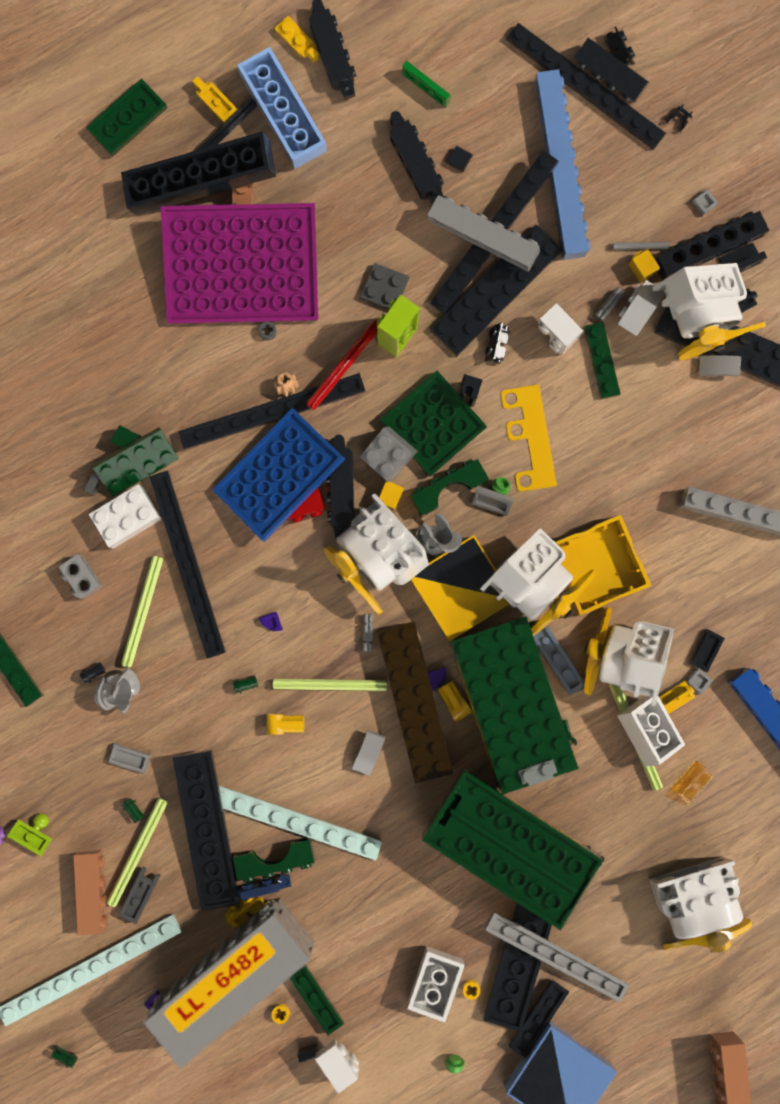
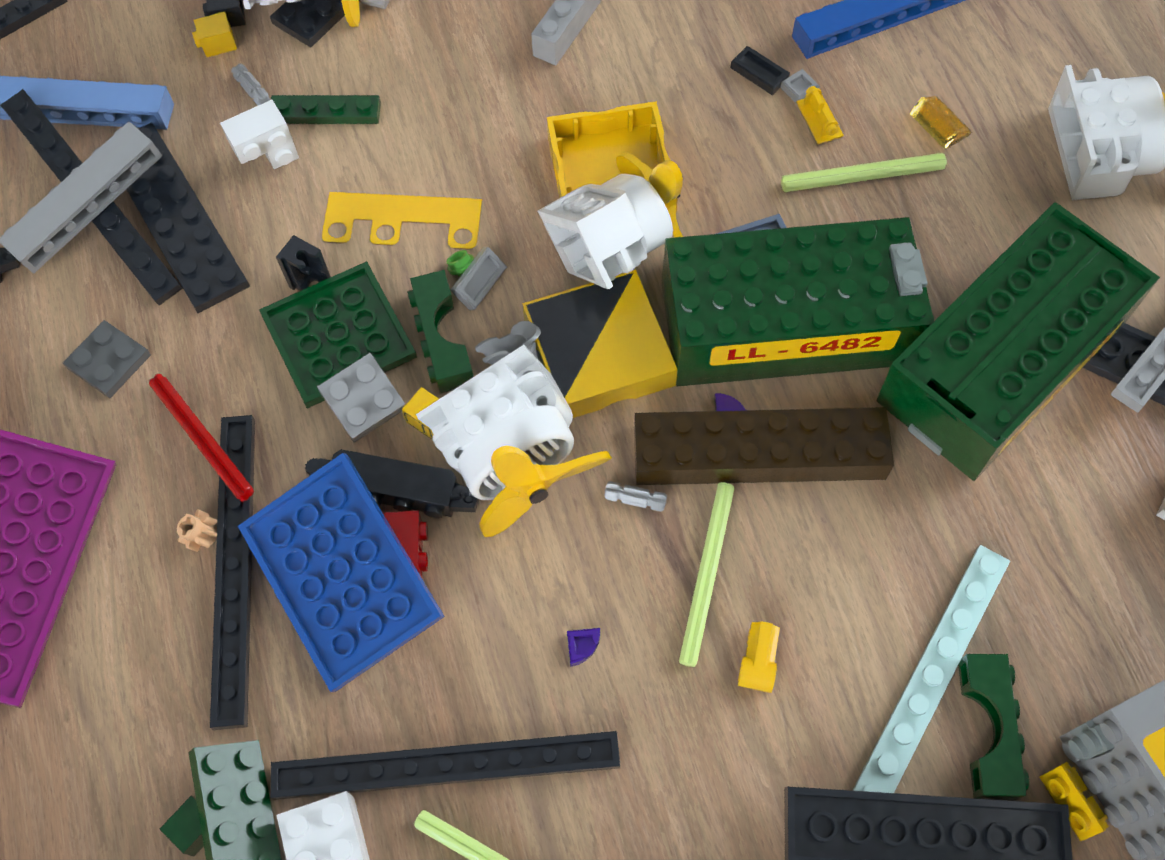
camera: 70 degrees left, 20 degrees down
(245, 684) = (678, 706): dark green pin -> none
(263, 327) = (96, 536): dark grey bush -> none
(266, 886) = (1043, 756): dark blue hinge -> none
(368, 753) = (833, 533): light grey slope -> none
(398, 325) = (166, 329): lime brick -> none
(456, 704) = (779, 388): yellow piece -> none
(498, 335) = (245, 227): black hinge -> none
(631, 657) = (755, 133): white brick -> none
(641, 245) = (186, 38): light grey bar -> none
(642, 306) = (271, 42): white brick -> none
(651, 731) = (862, 142): white brick -> none

